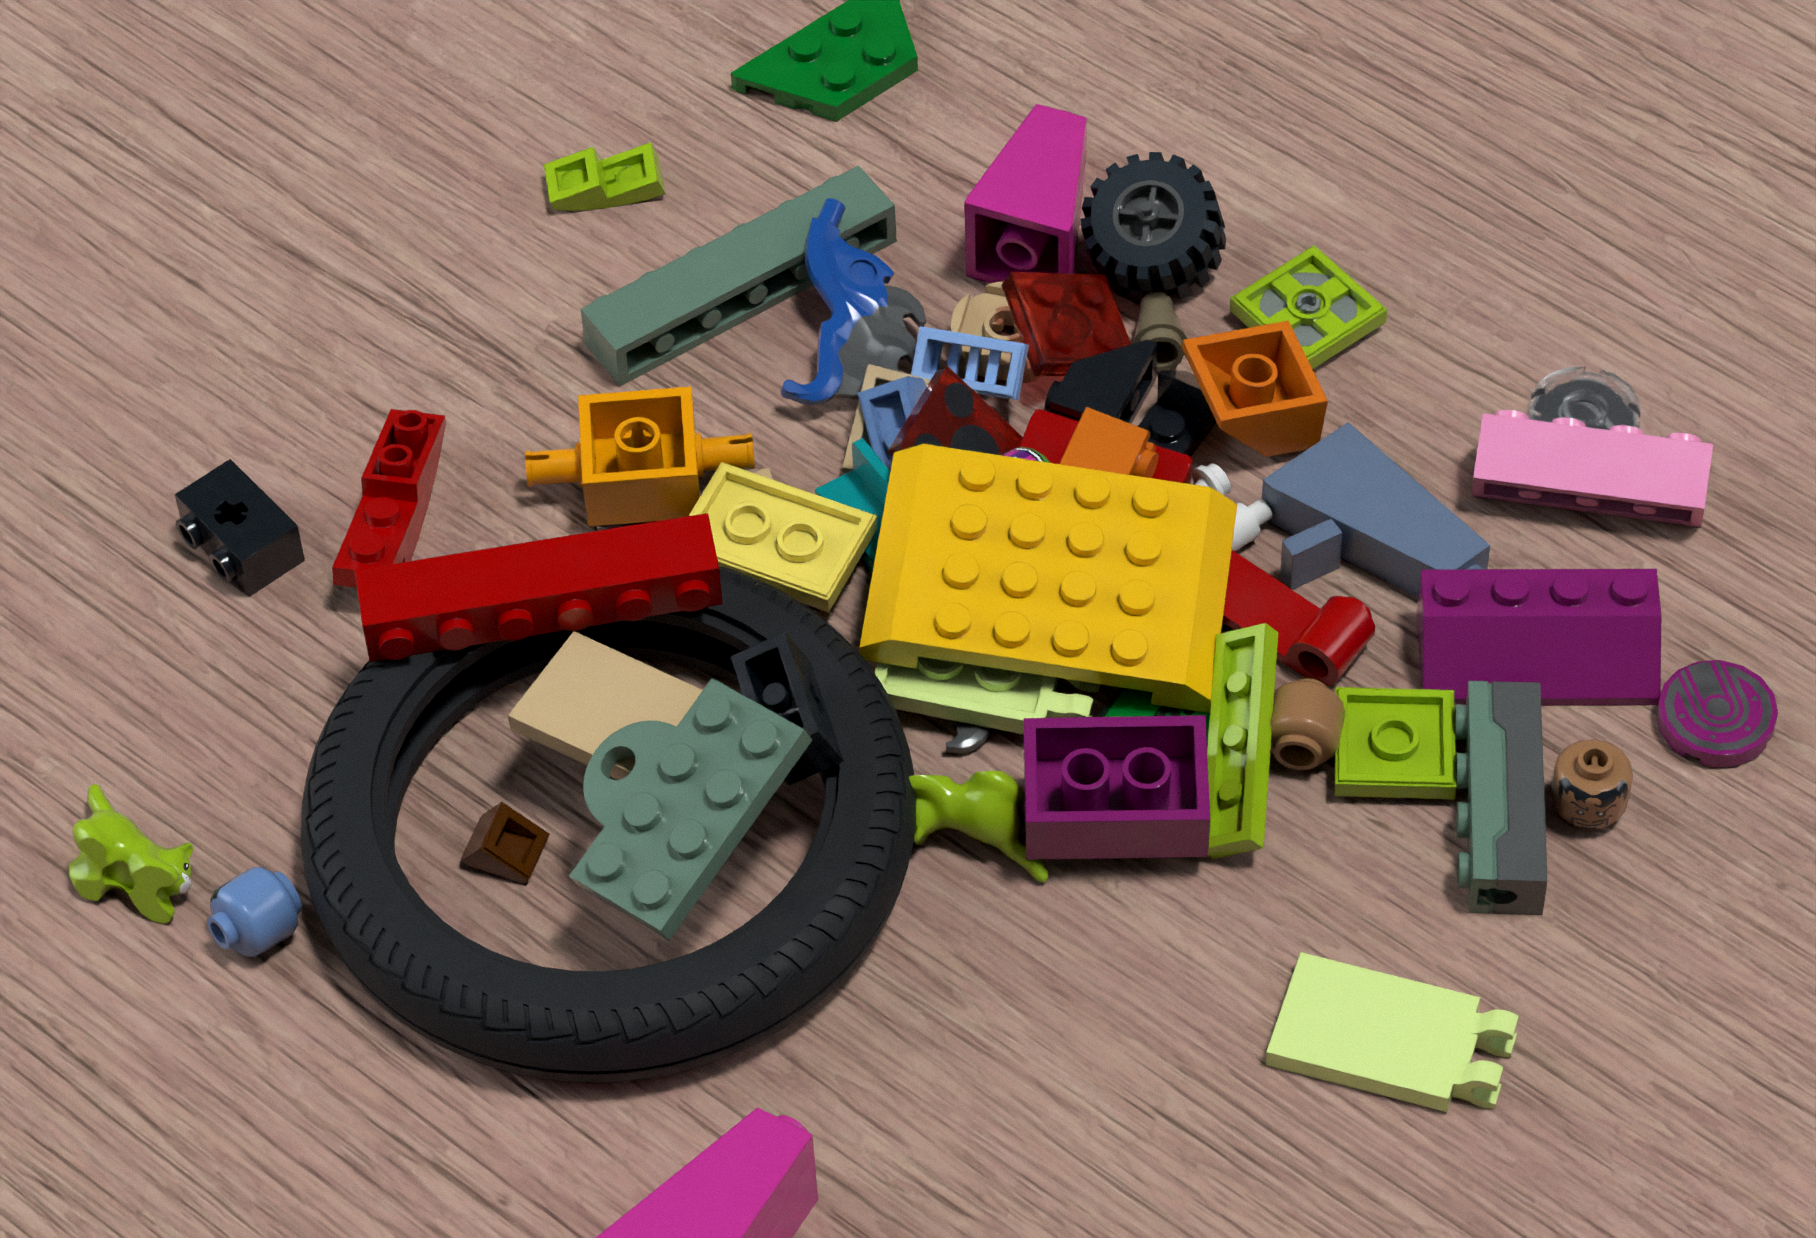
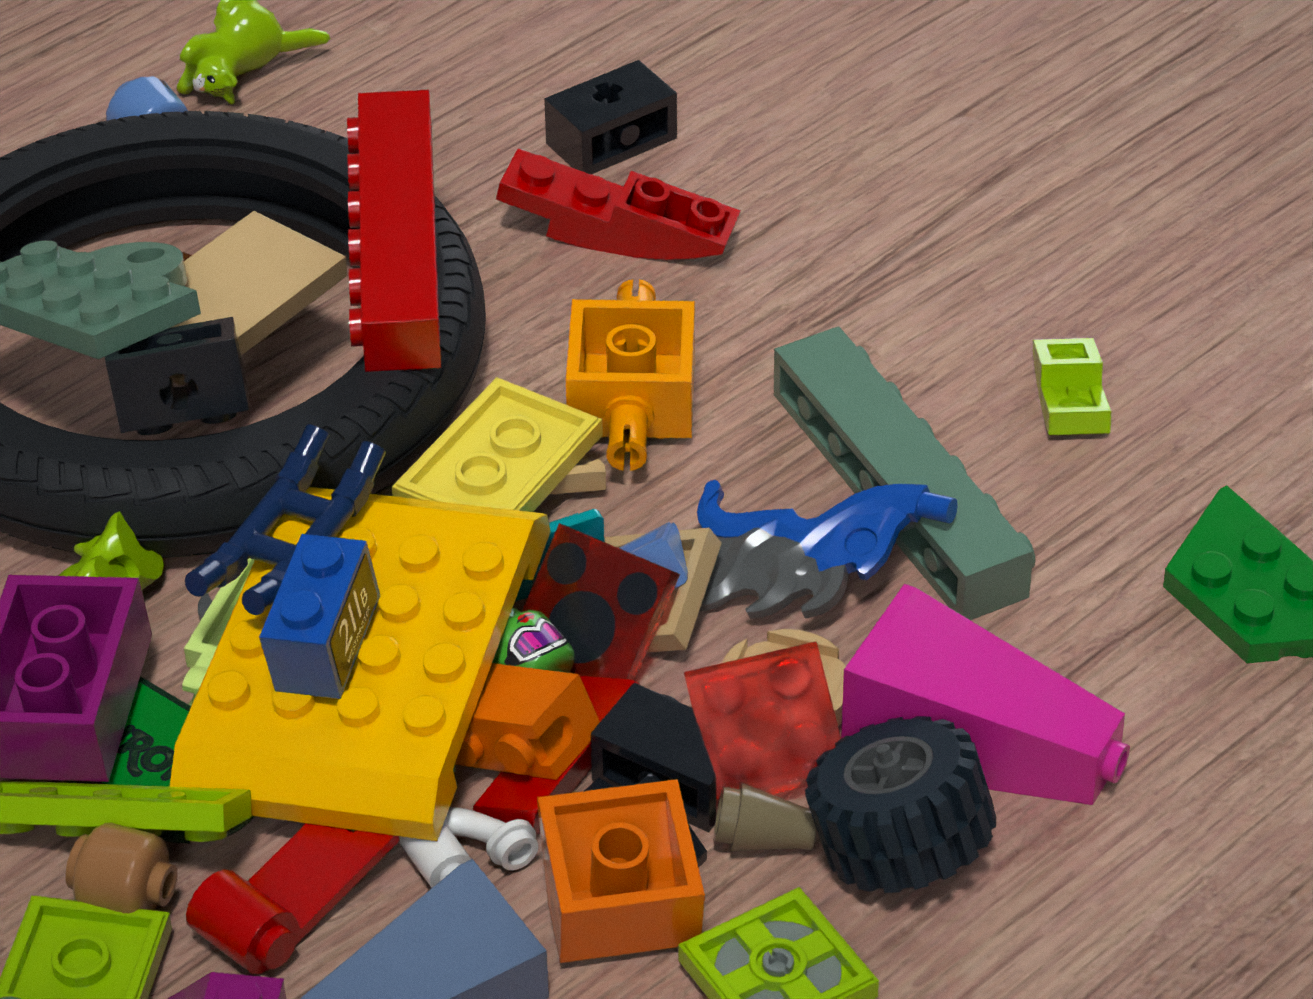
camera: 95 degrees right, 10 degrees down
(929, 352) = (722, 624): light blue slope -> none
(942, 579) = (288, 498): none -> dark blue piece
(1082, 554) = (320, 616): none -> blue brick
(1311, 554) = (371, 902): sand blue tile -> none

